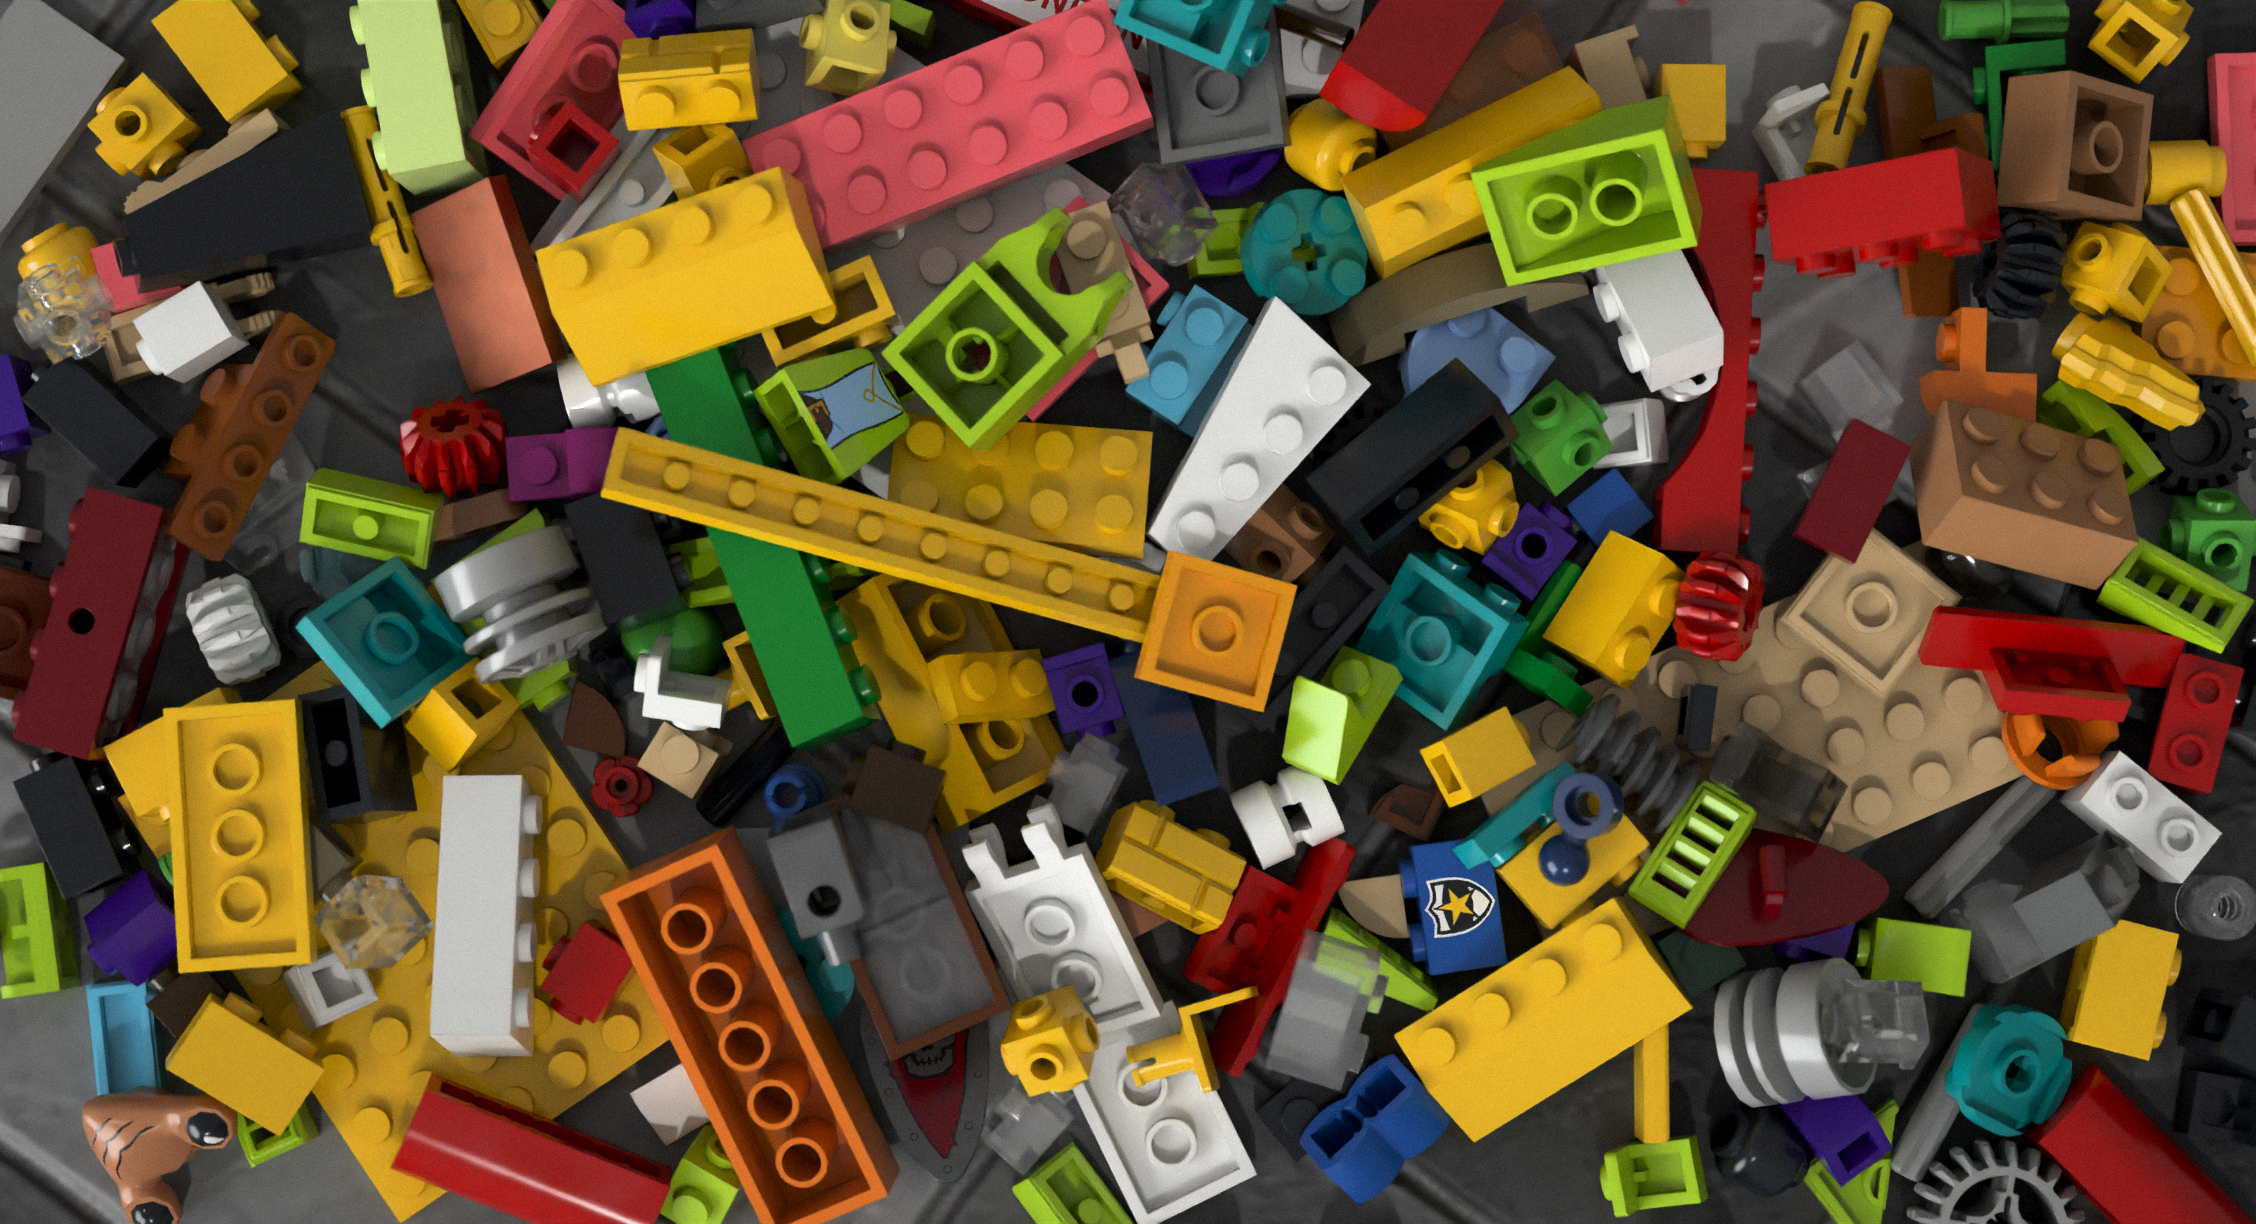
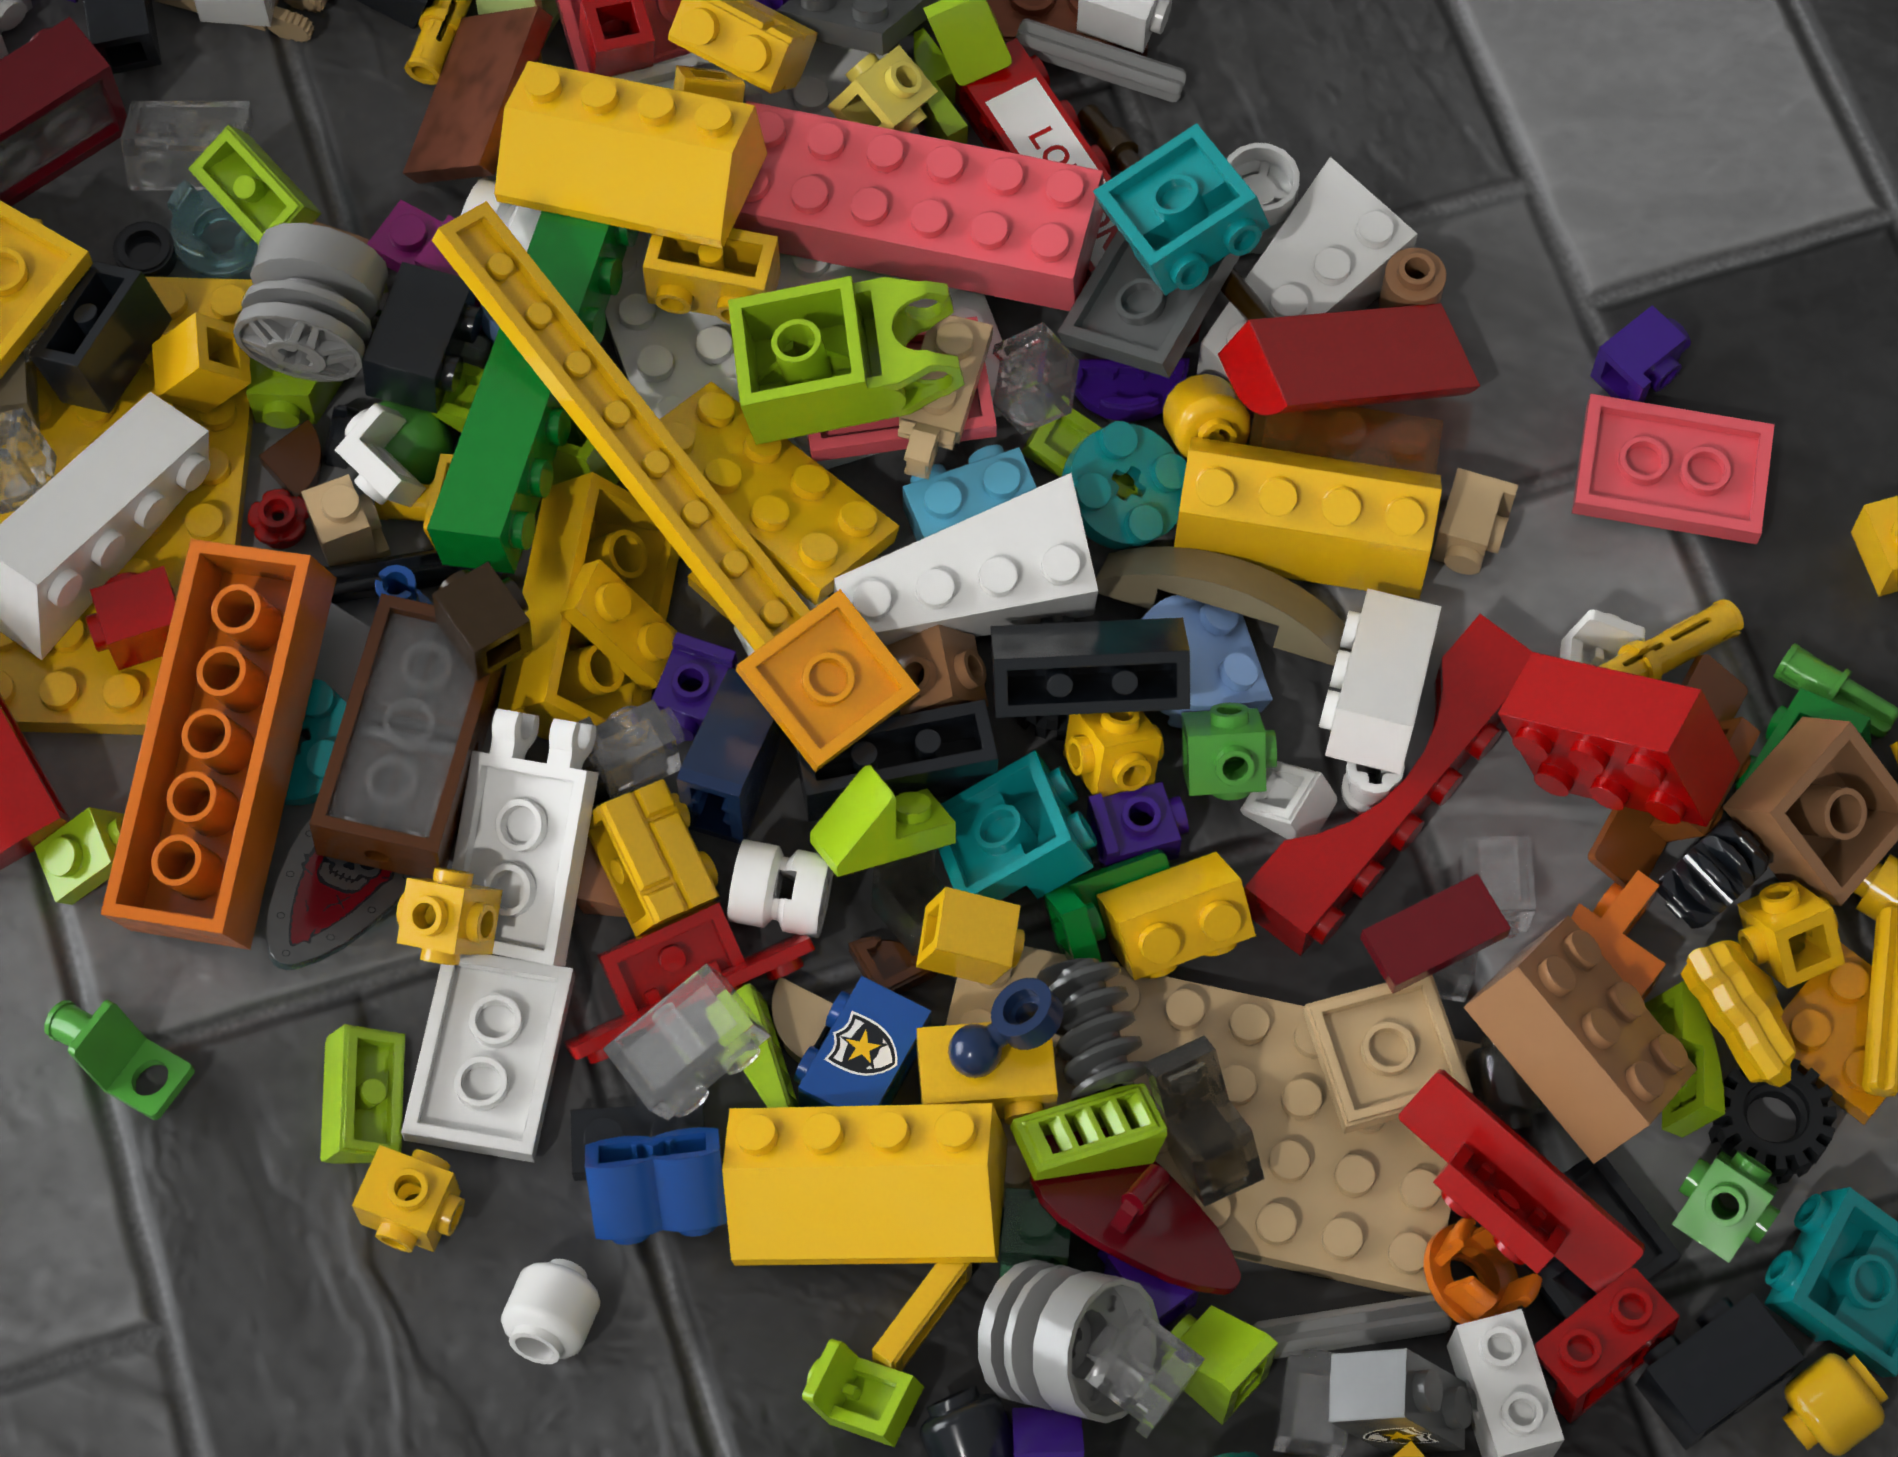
camera: 30 degrees right, 20 degrees down
(233, 629) = (88, 201): white gear -> none
(240, 433) = (213, 77): dark orange bracket -> none
(386, 640) = (188, 259): teal plate -> none
(454, 446) = (356, 185): red gear -> none
(671, 1105) = (110, 772): white slope -> none
(813, 853) = (367, 631): dark grey torso -> none
(835, 412) = (664, 332): lime torso -> none
(1027, 1125) = (382, 985): clear brick -> none
(1184, 1049) = (560, 1003): yellow bracket -> none
(1499, 835) = (945, 999): teal plate -> none
(1591, 194) = (1381, 558): lime slope -> none
(1607, 507) = (1233, 838): blue tile -> none
(1696, 717) = (1177, 1028): black tile -> none
(1698, 103) = (1518, 580): yellow brick -> none
(1719, 606) = (1259, 957): red gear -> none
(2167, 570) = (1651, 1170): lime slope -> none

